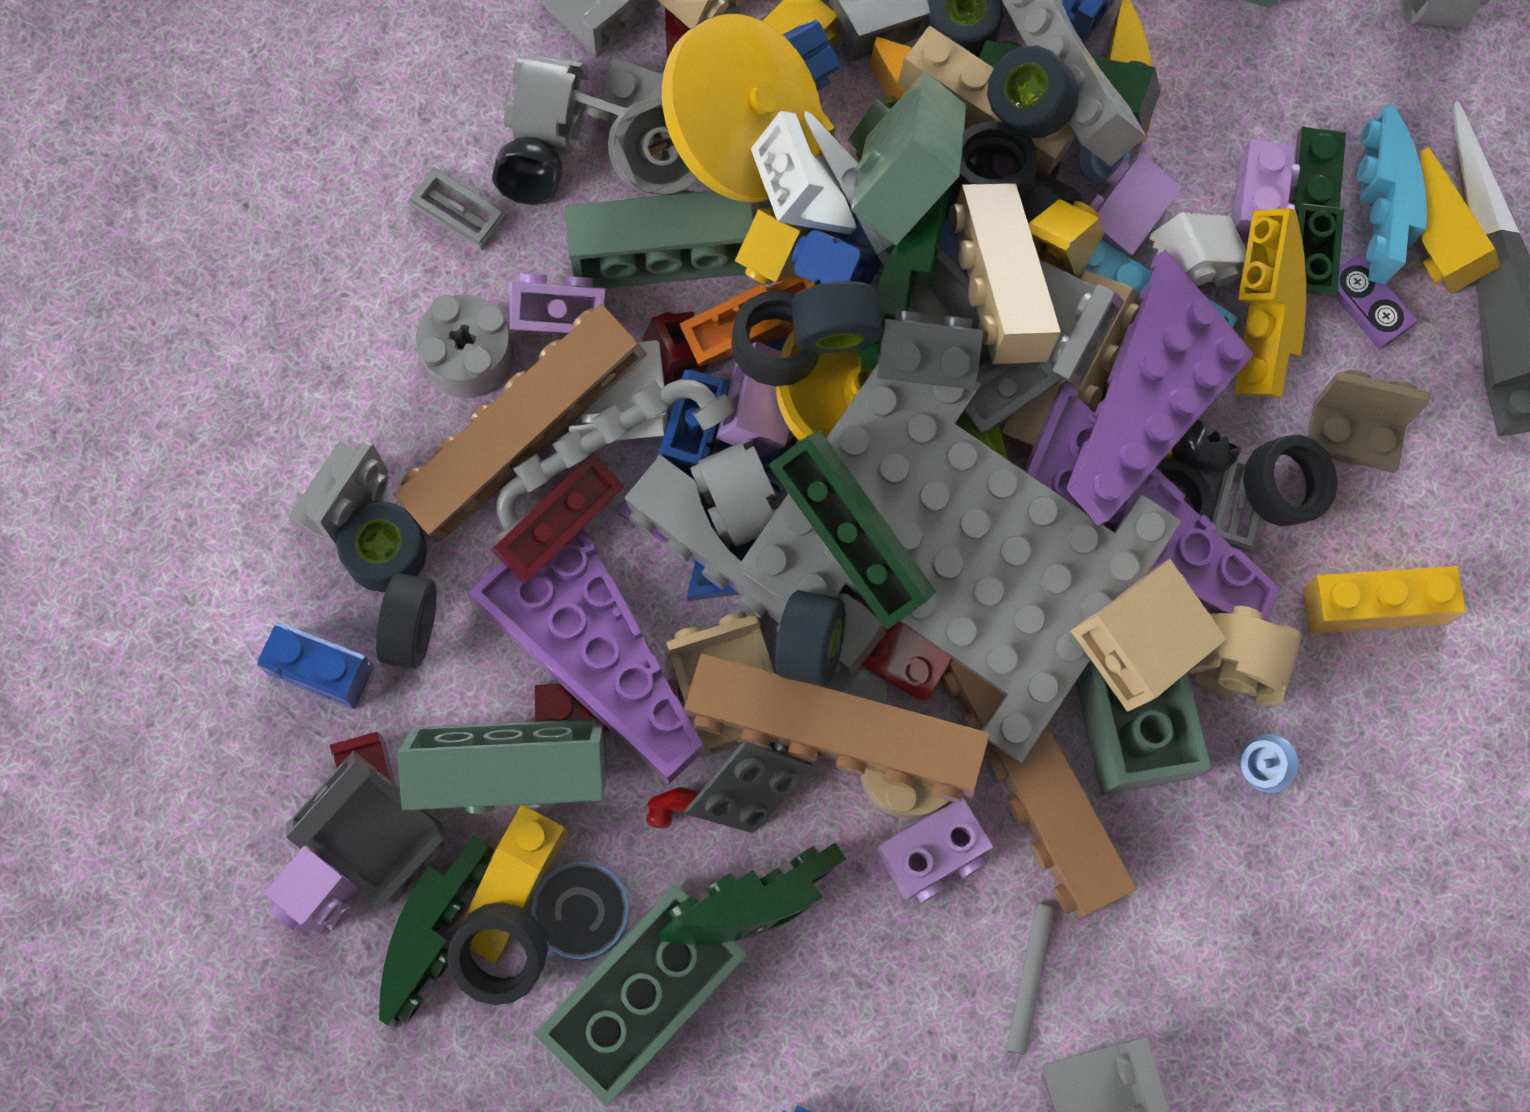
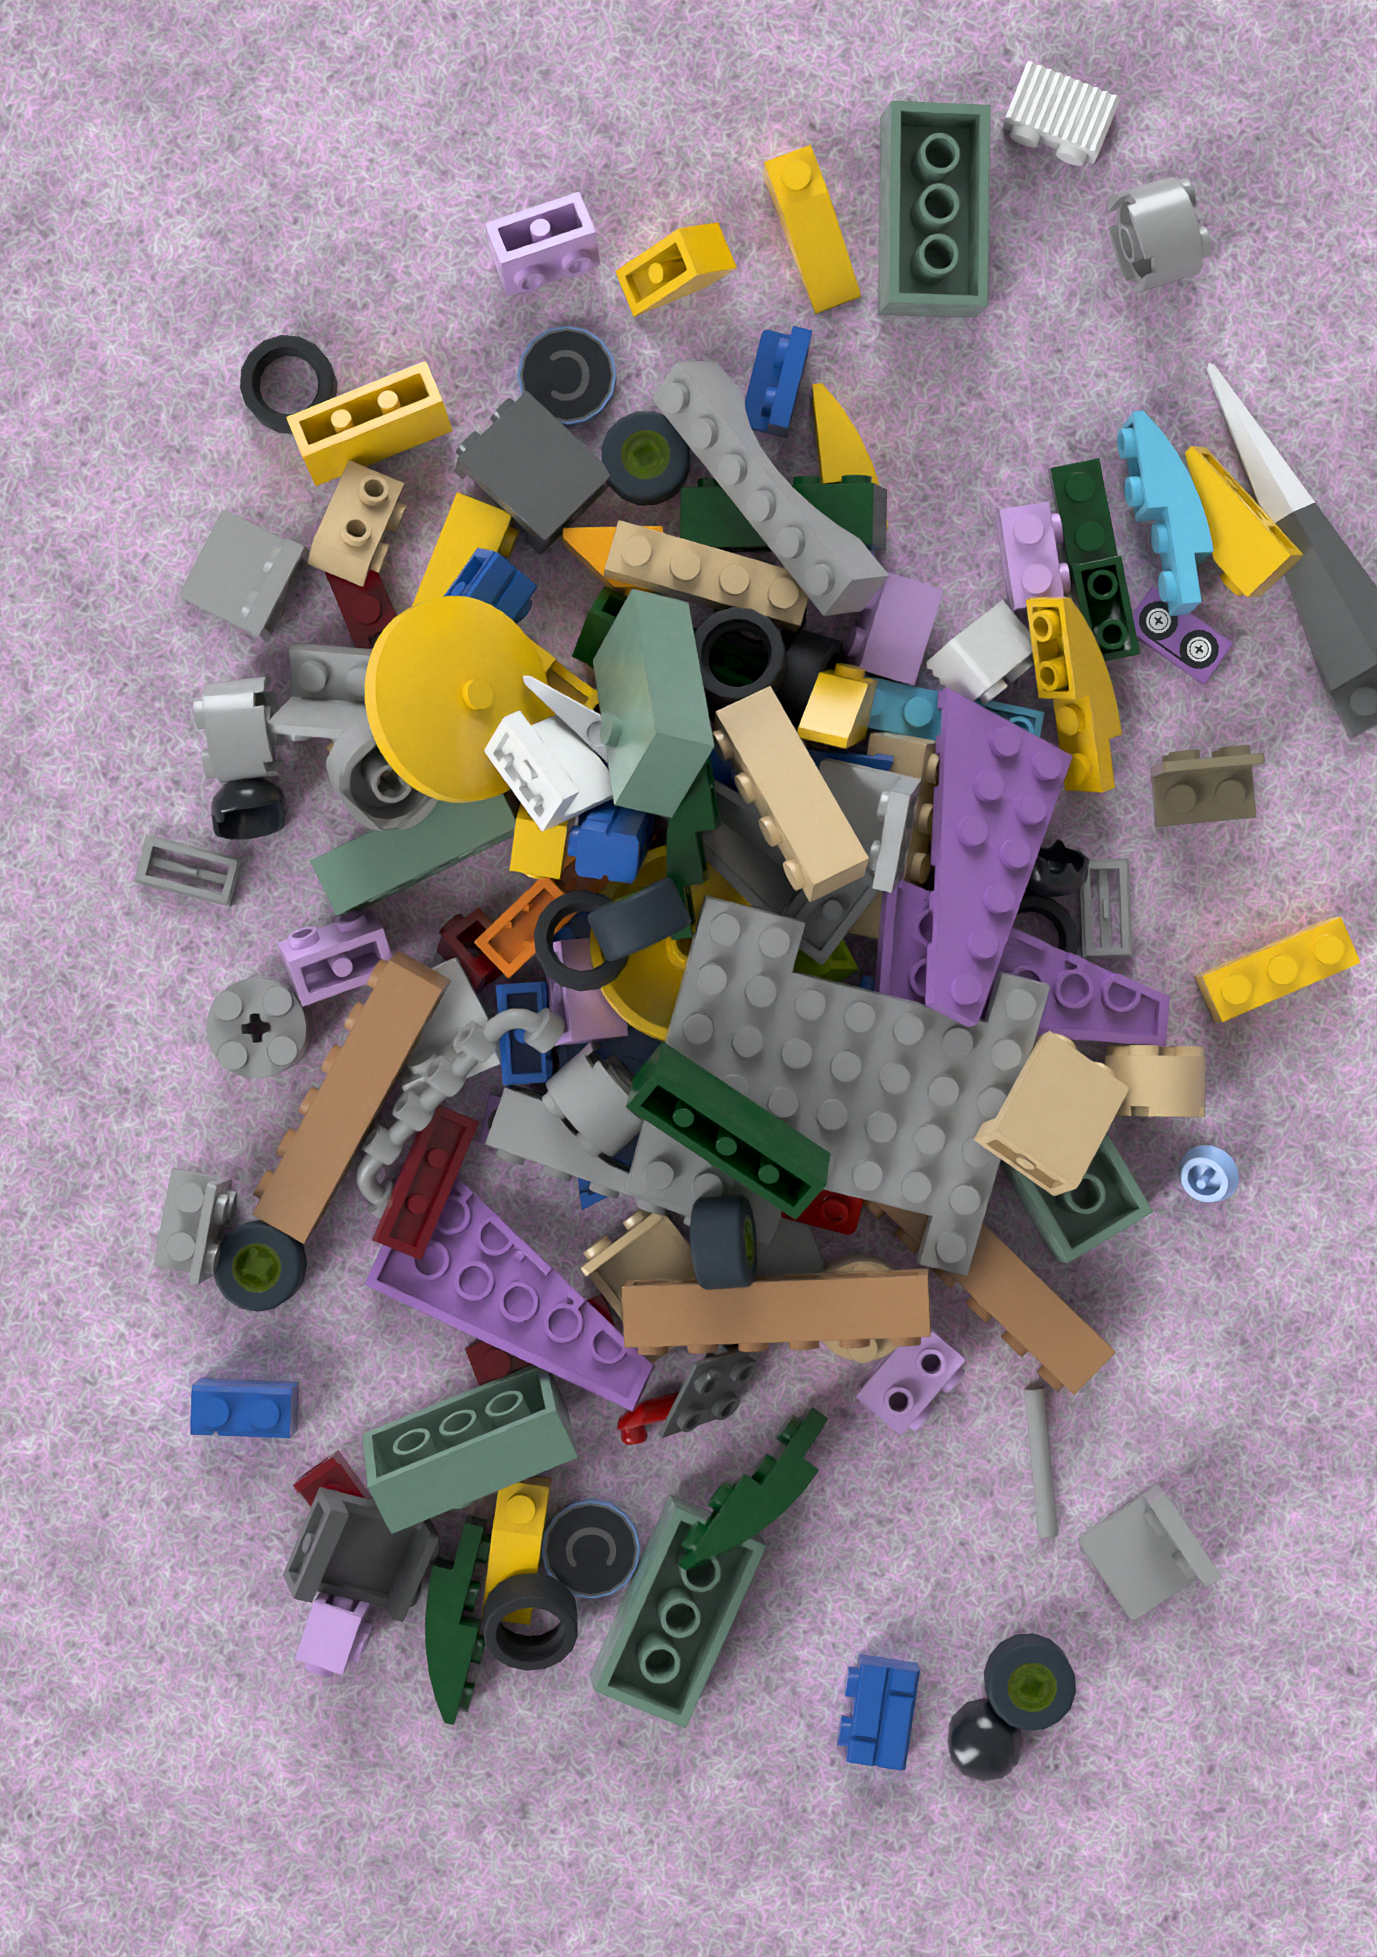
camera: 20 degrees left, 15 degrees up
(406, 620) = (316, 1337): black tyre -> none
(930, 351) = (742, 915): dark grey bracket -> none
(1025, 76) = (736, 585): black wheel -> none
(1318, 473) = (1182, 874): black tyre -> none

